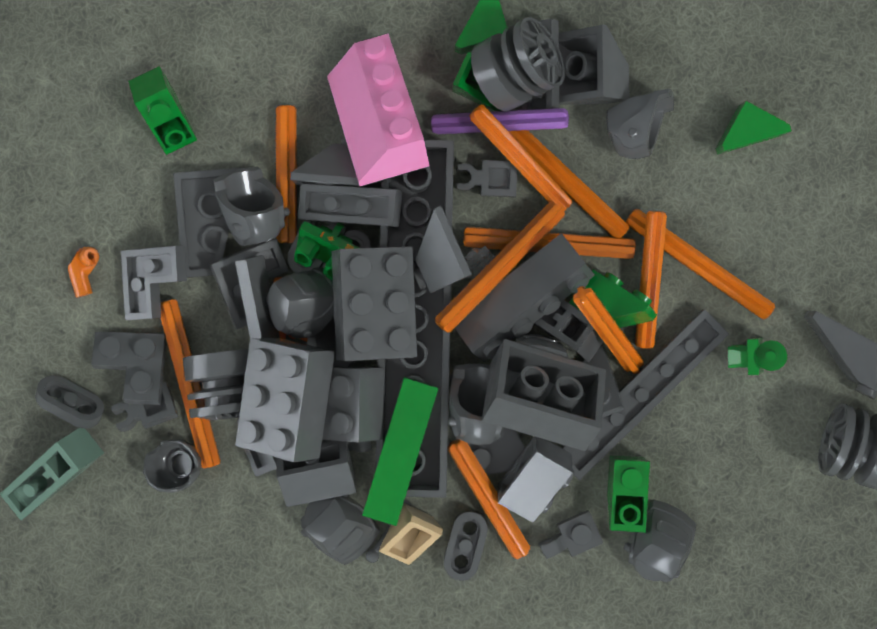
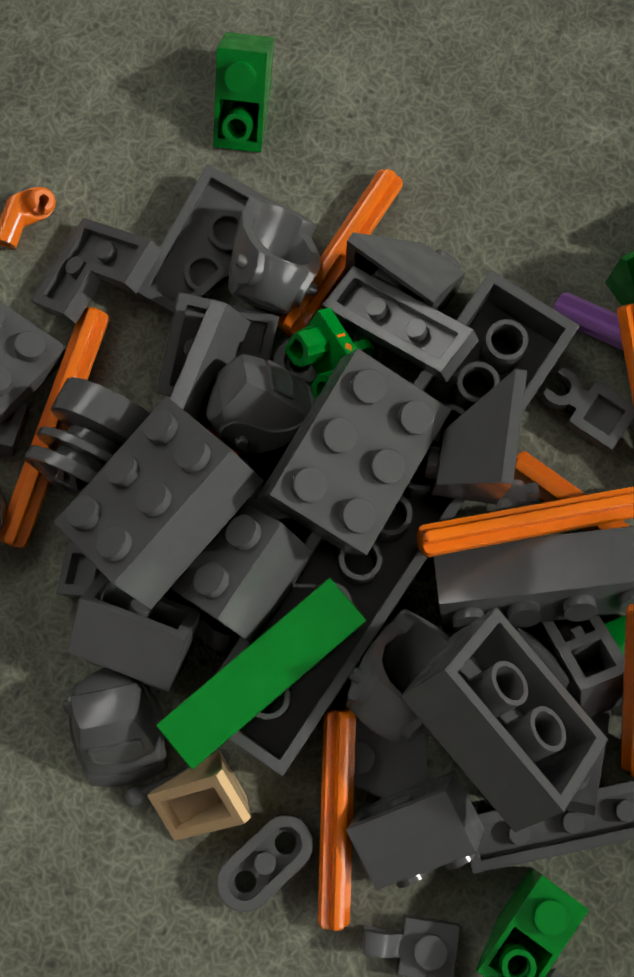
camera: 30 degrees right, 10 degrees down
(377, 112) = (506, 235): bright pink slope -> none

